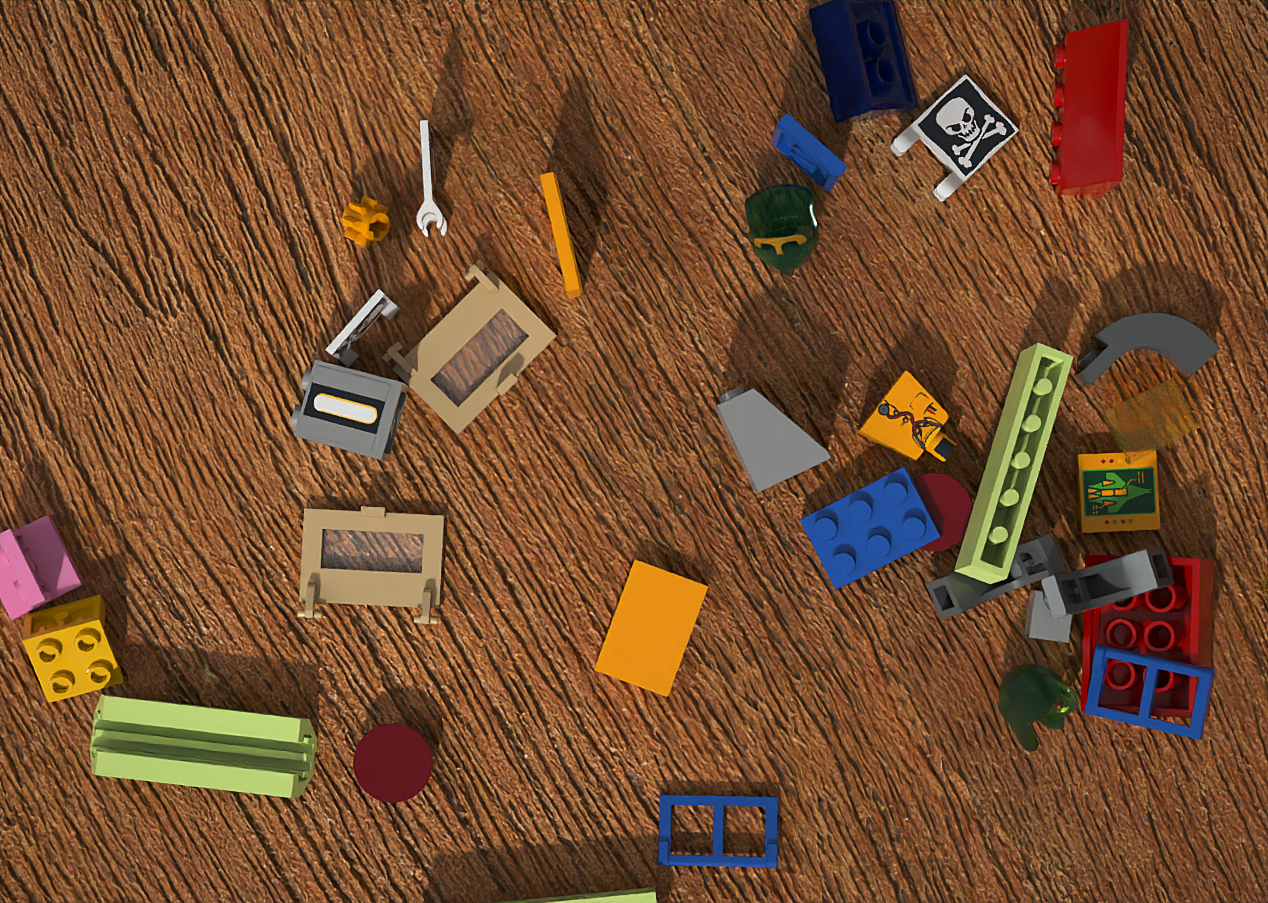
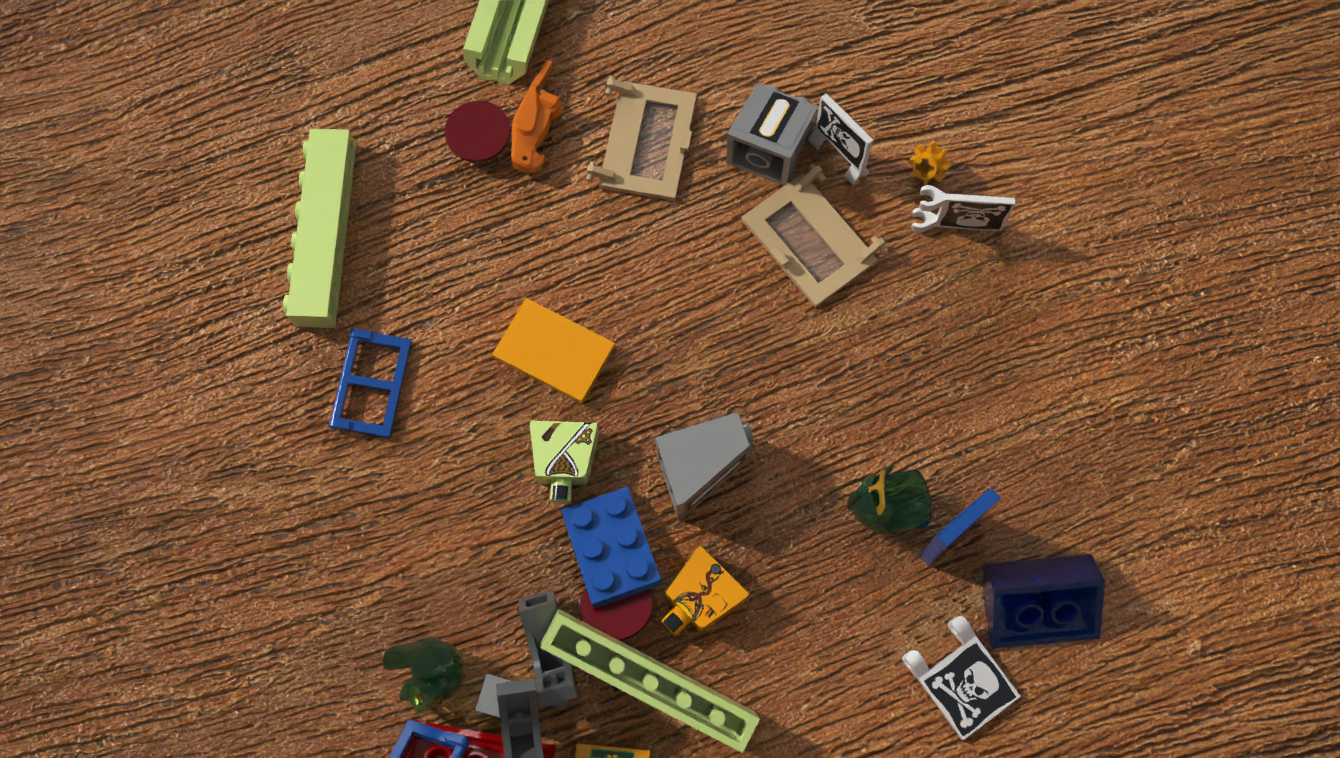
camera: 105 degrees right, 15 degrees down
(374, 697) = (533, 123): none -> orange animal
(561, 235) = (903, 311): light orange tile -> none
(776, 596) = (563, 455): none -> yellowish green torso

